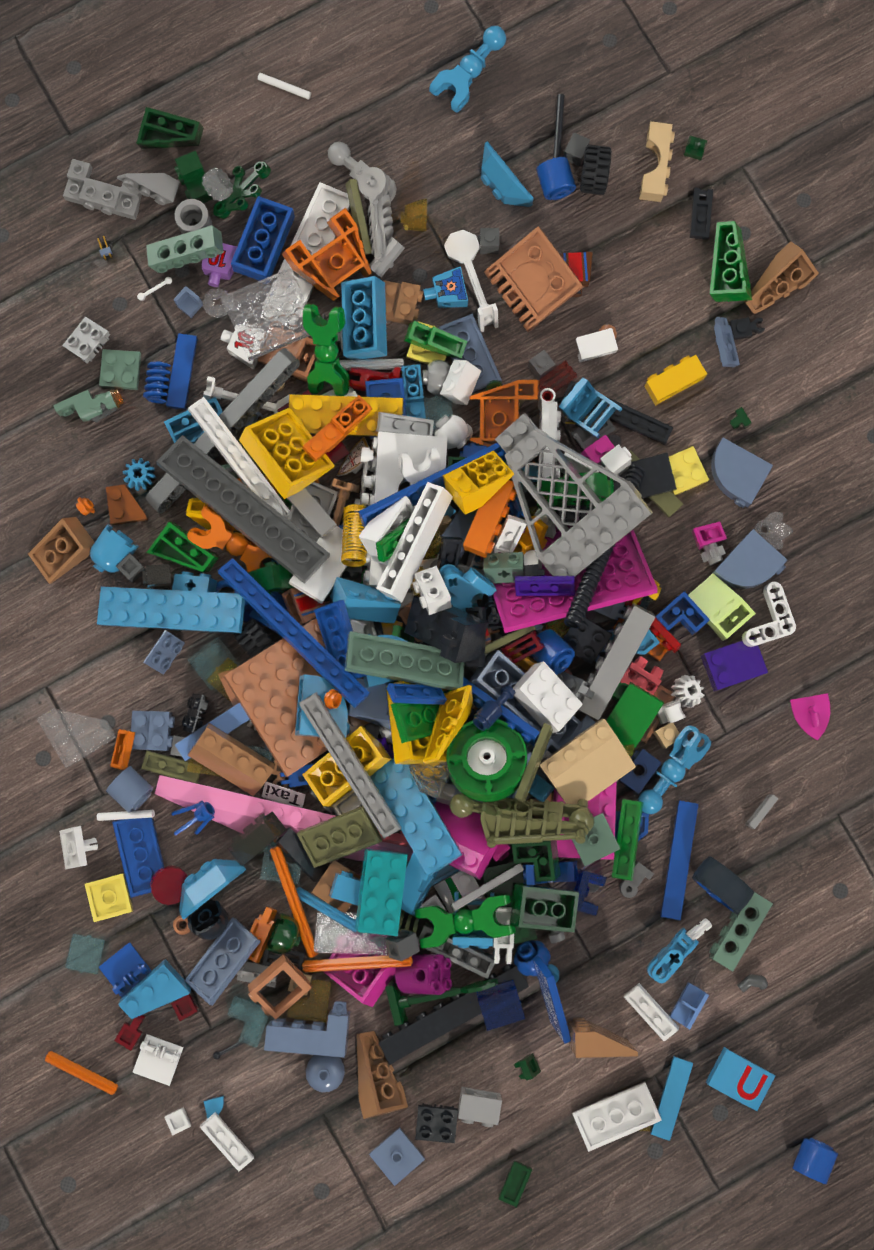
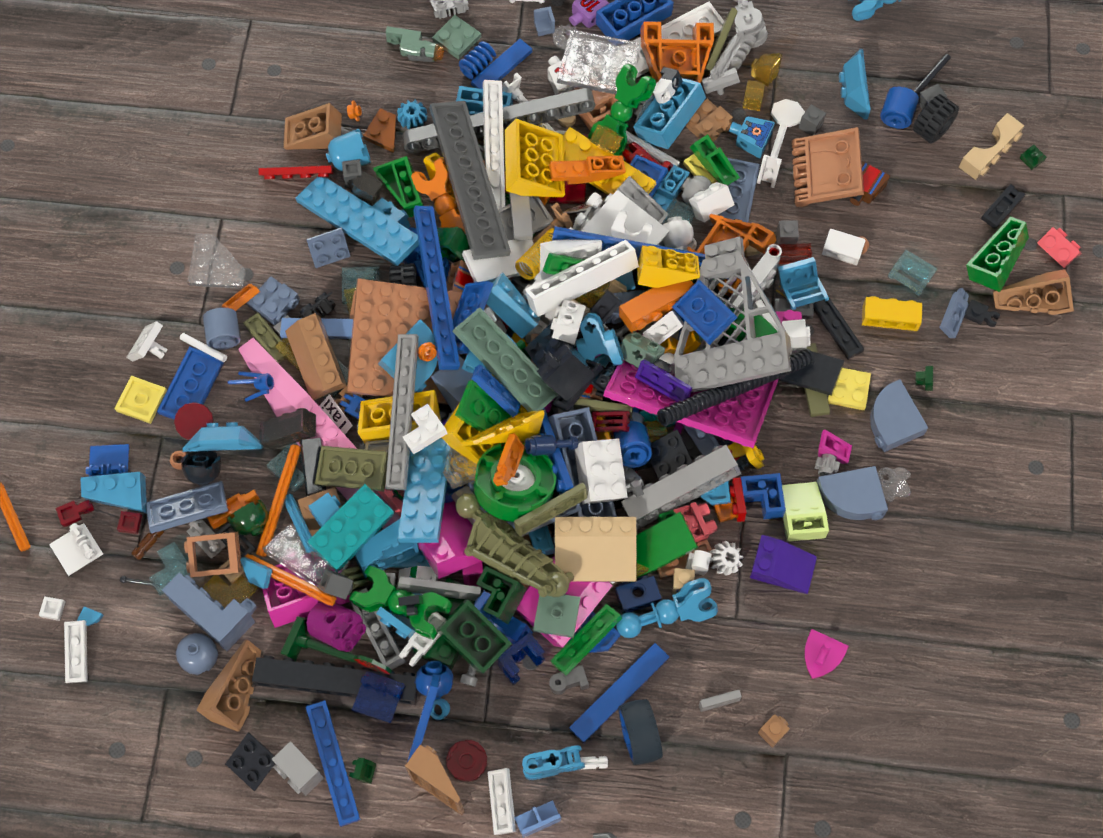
camera: 35 degrees right, 15 degrees down
(73, 604) = (288, 172): none -> red plate
(85, 954) = (88, 430): clear light blue piece -> none
(212, 1016) = (145, 544): none -> reddish brown axle
(324, 975) = (256, 573): none -> dark azure tile
(332, 386) = (606, 139): none -> clear yellow brick
(347, 296) = (667, 85): none -> leg
(387, 768) = (429, 429): none -> white plate
(397, 1156) = (199, 765): sand blue plate -> none
(422, 249) = (753, 95): none -> clear yellow brick
(474, 750) = (509, 460): none -> orange hinge
(479, 921) = (411, 603): none -> black tile
(500, 1078) = (333, 763): none -> blue plate
(539, 503) = (704, 312): none -> blue tile
(600, 999) = (466, 760): none -> dark red tile
(666, 323) = (914, 267): none -> clear light blue plate
(730, 959) = (602, 805): sand green brick -> none
(771, 220) = (1059, 247): none -> coral bracket
(777, 624) = (841, 558): white beam -> none
(819, 805) = (774, 730): none -> medium nougat brick

